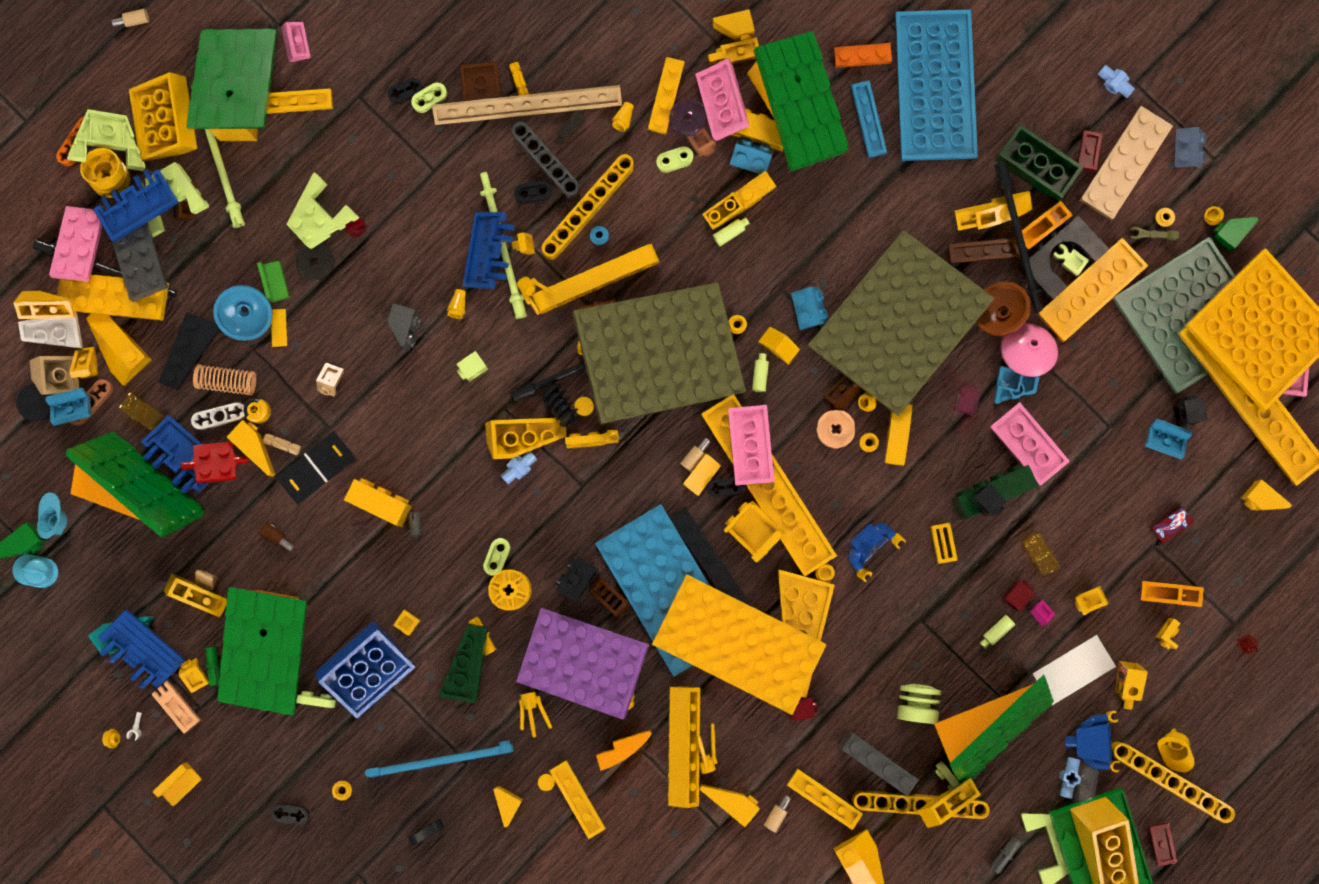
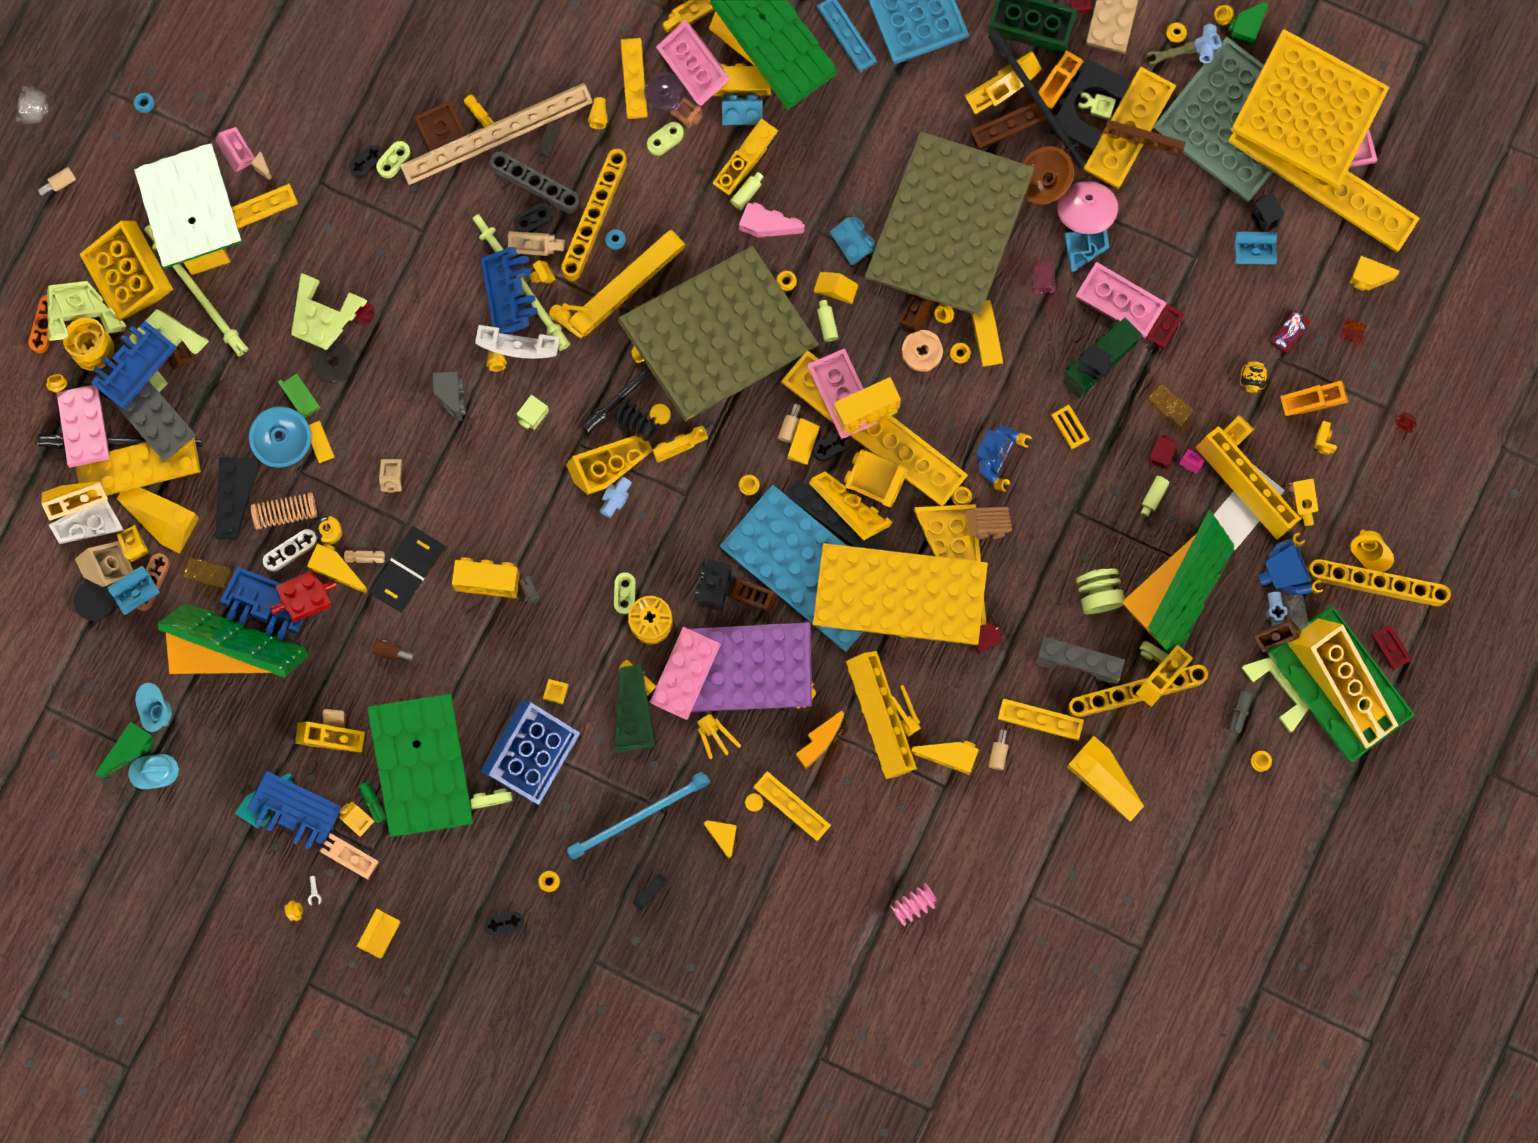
camera: 25 degrees left, 5 degrees down
(68, 197) = (56, 383): none -> yellow plate
(312, 64) = (260, 166): none -> tan slope
(477, 301) = (516, 346): none -> white slope
(524, 648) = (685, 673): none -> bright pink plate
(526, 215) = (535, 243): none -> tan hinge
(640, 497) = (749, 485): none -> yellow plate
(727, 560) = (849, 506): none -> yellow wing
(734, 265) = (765, 223): none -> bright pink slope
(767, 467) = (867, 406): none -> yellow brick
(840, 605) = (988, 521): none -> medium nougat brick
(1061, 481) = (1165, 326): none -> dark red plate
(1064, 800) = (1277, 635): none -> reddish brown slope
(1086, 652) = (1247, 483): none -> yellow brick
(1108, 308) = (1152, 140): none -> reddish brown plate
(1124, 555) = (1254, 377): none -> head
(1190, 237) = (1208, 43): none -> light blue axle
(1229, 544) = (1353, 331): none -> clear red slope

